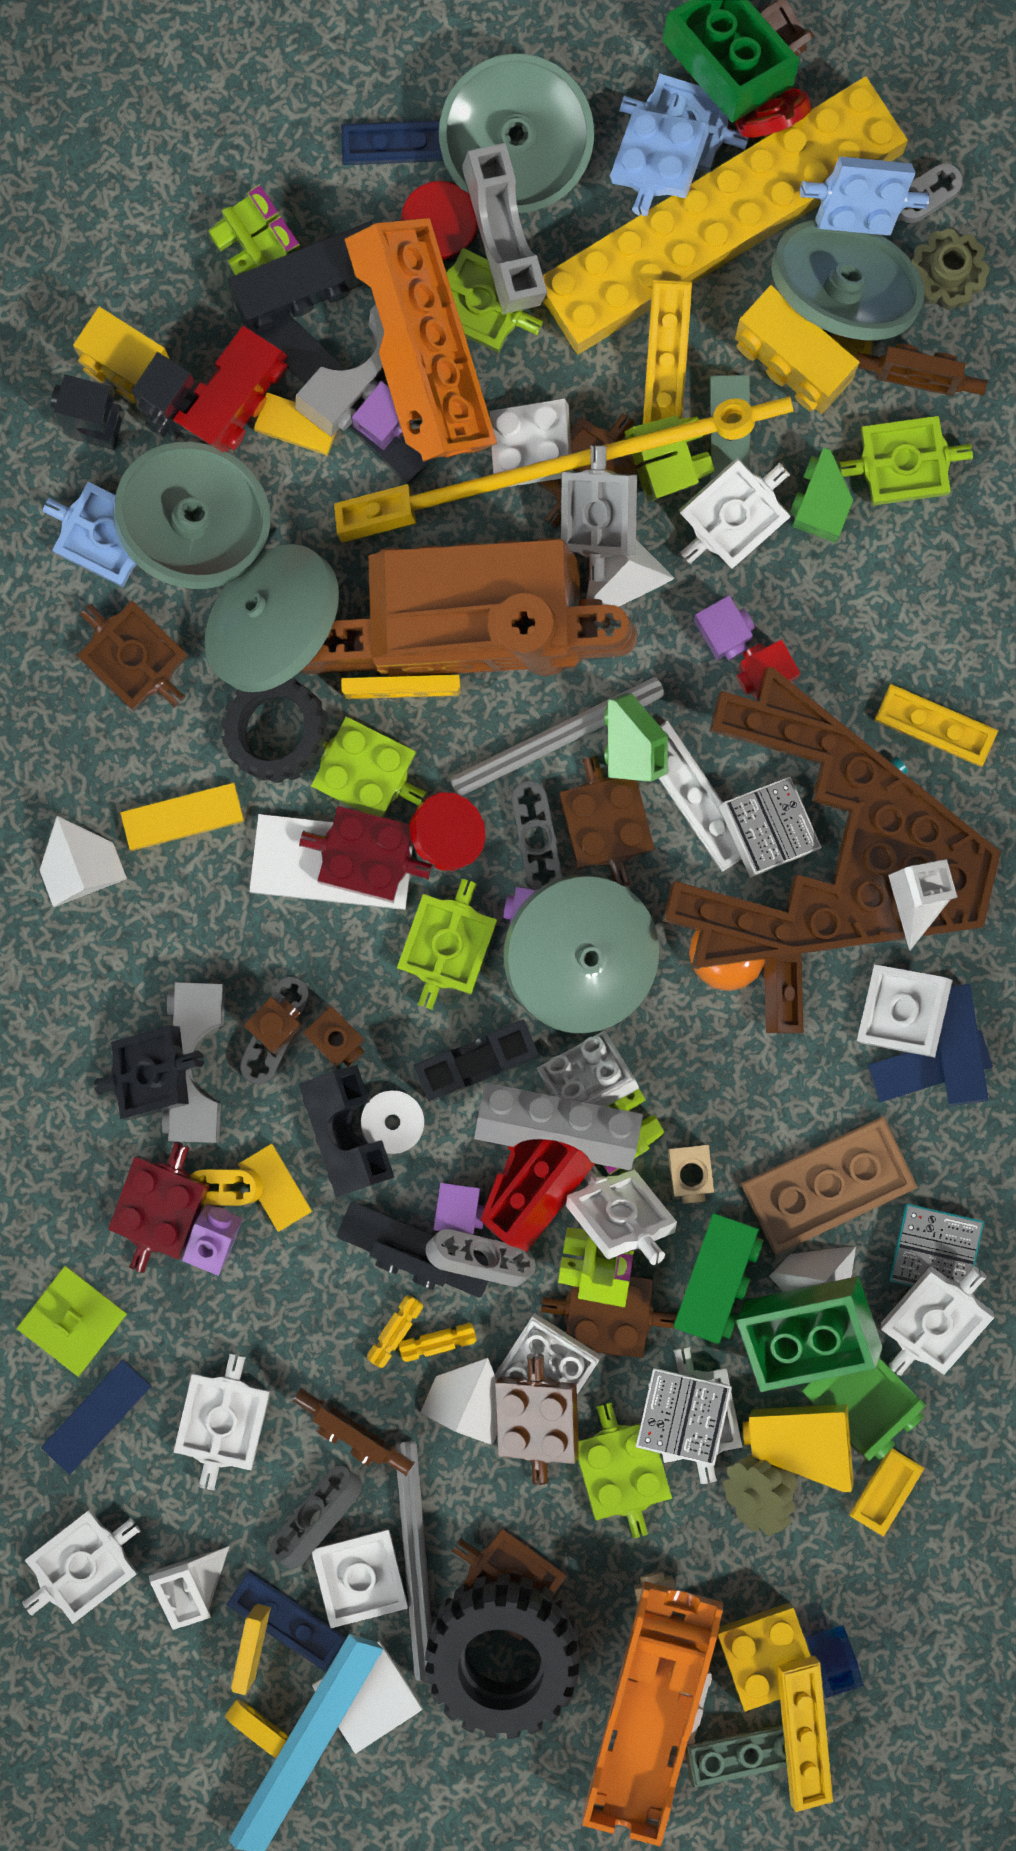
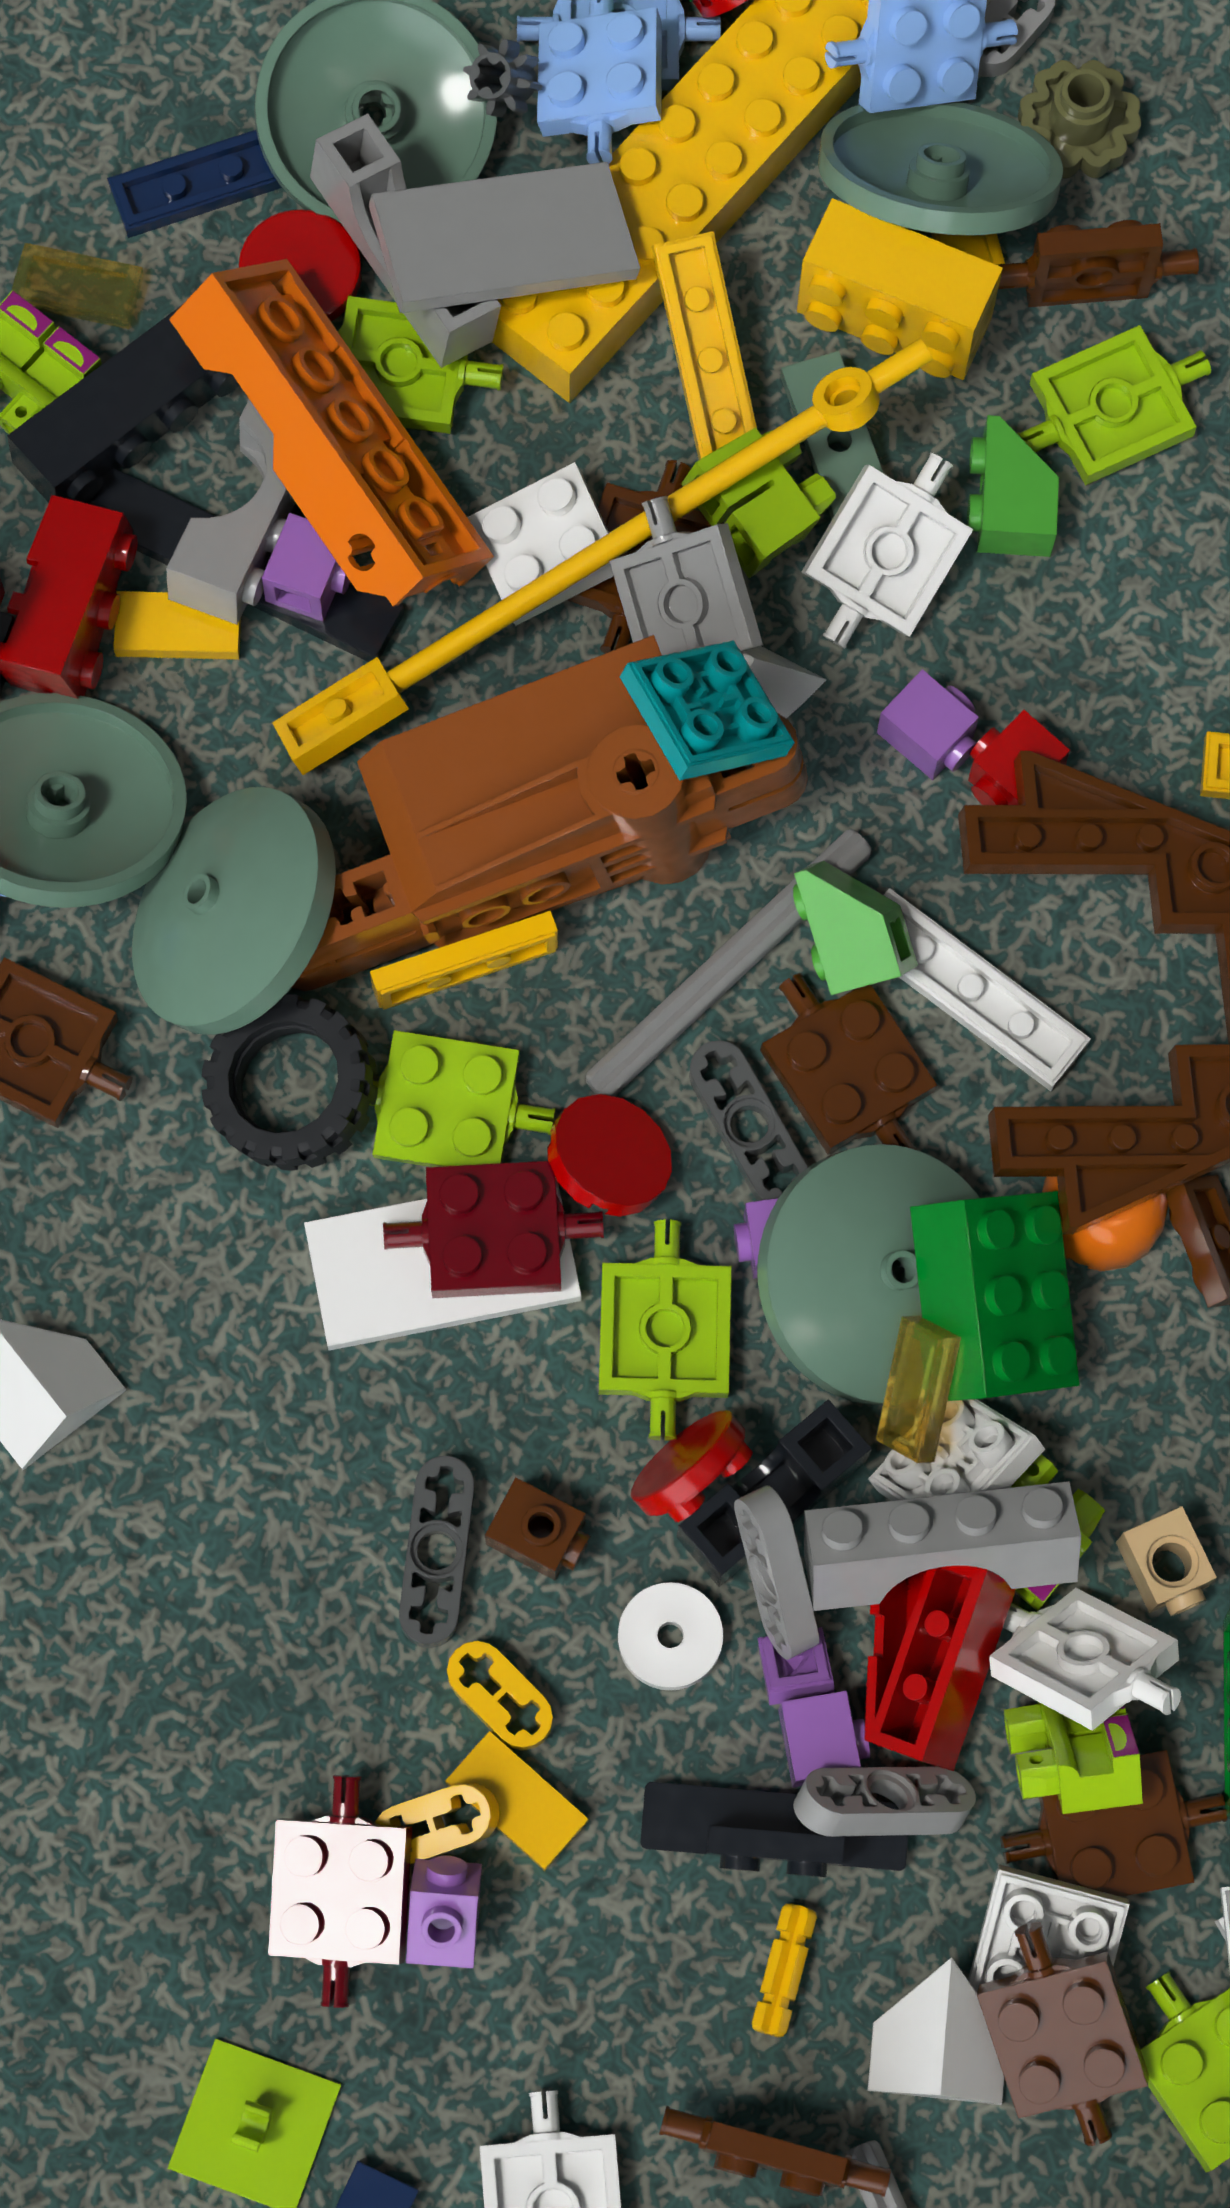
camera: 25 degrees left, 10 degrees down
(149, 1072) = (260, 1674): black plate -> none
(182, 817) = (184, 1265): yellow tile -> none
(197, 1011) = (347, 1720): light grey arch -> none
(274, 1024) = (436, 1534): reddish brown brick -> none
(293, 1120) = (511, 1684): none -> yellow beam
(302, 188) = (78, 285): none -> clear yellow tile
(330, 1107) = (564, 1635): black arch -> none
(434, 1029) = (689, 1464): none -> red tile
(437, 1342) = (858, 1965): yellow axle -> none
(458, 1163) = (798, 1677): none -> medium lavender tile
(460, 1110) = (776, 1572): none -> light grey beam
(562, 249) = (503, 237): none -> light grey tile
(577, 1029) = (918, 1389): none -> clear yellow tile
(578, 597) = (706, 710): none -> teal tile
(598, 150) = (488, 74): none -> dark grey gear
(640, 990) = (1001, 1285): none -> green brick
(770, 826) = (1103, 994): light grey tile -> none

